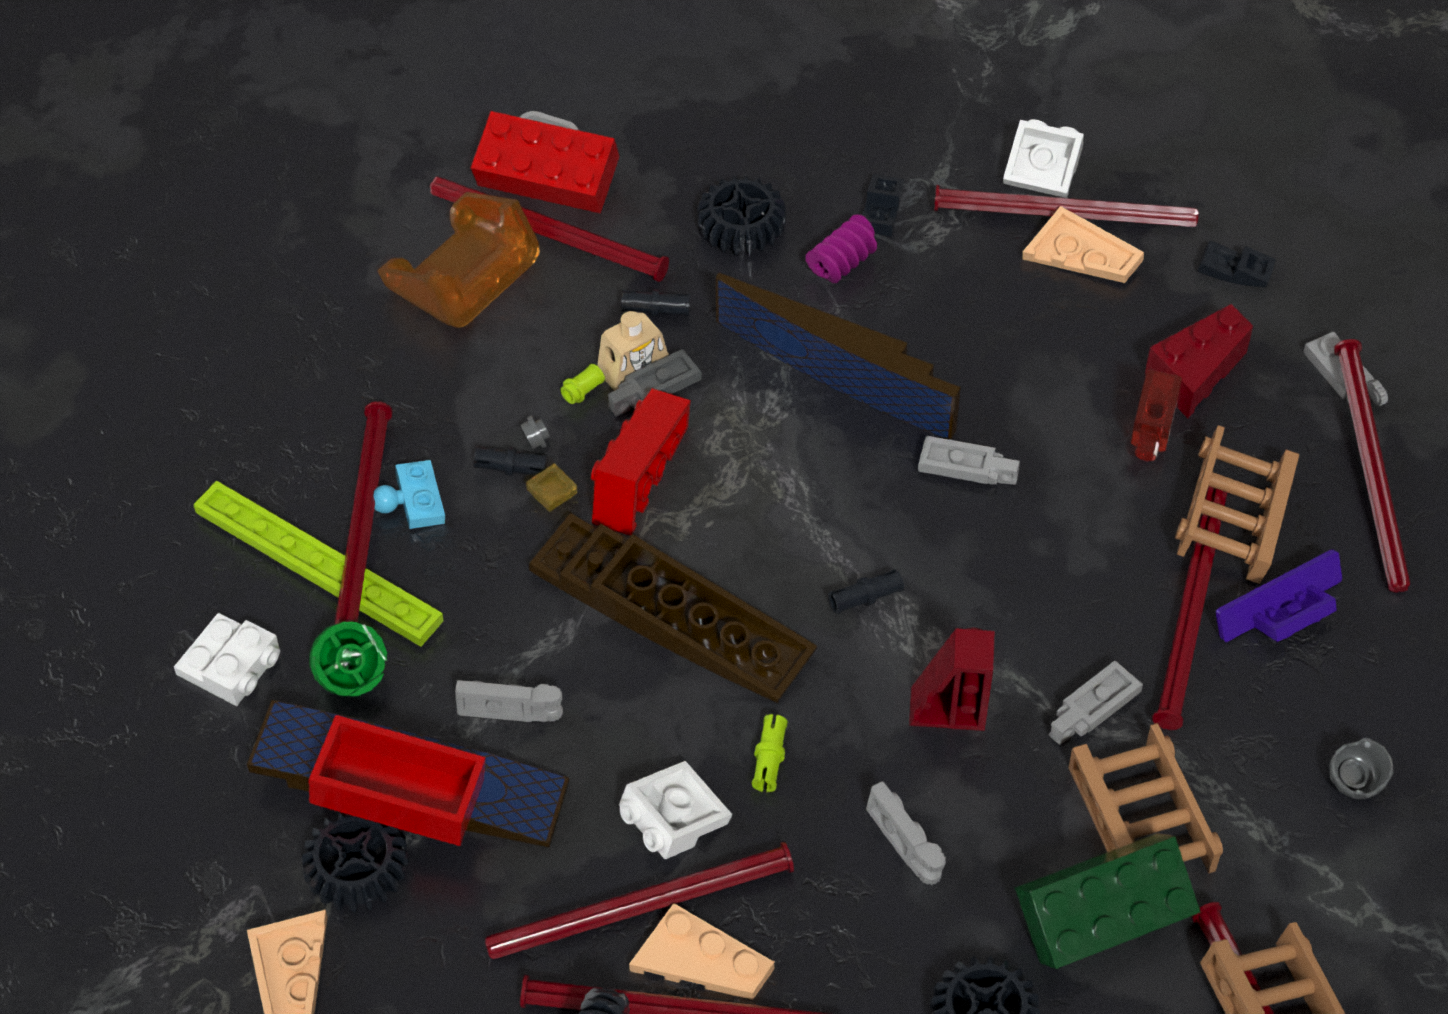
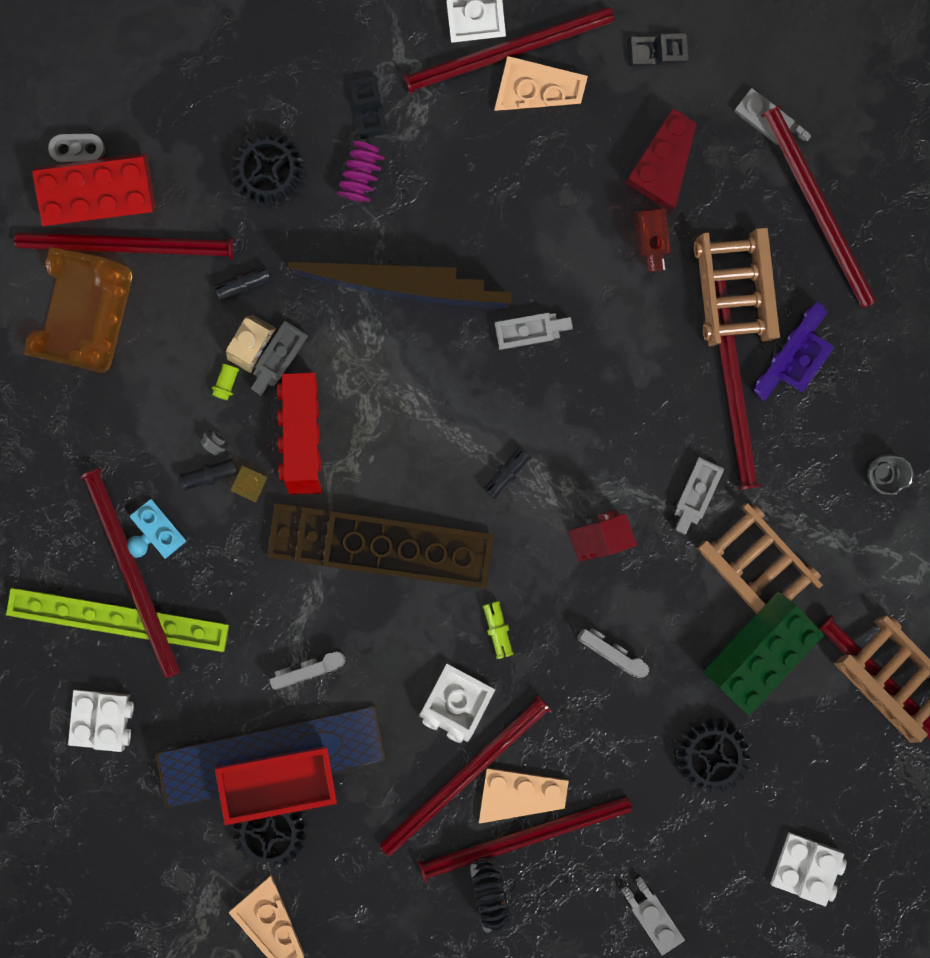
camera: 30 degrees left, 35 degrees up
(348, 659) = (186, 696): green cylinder -> none

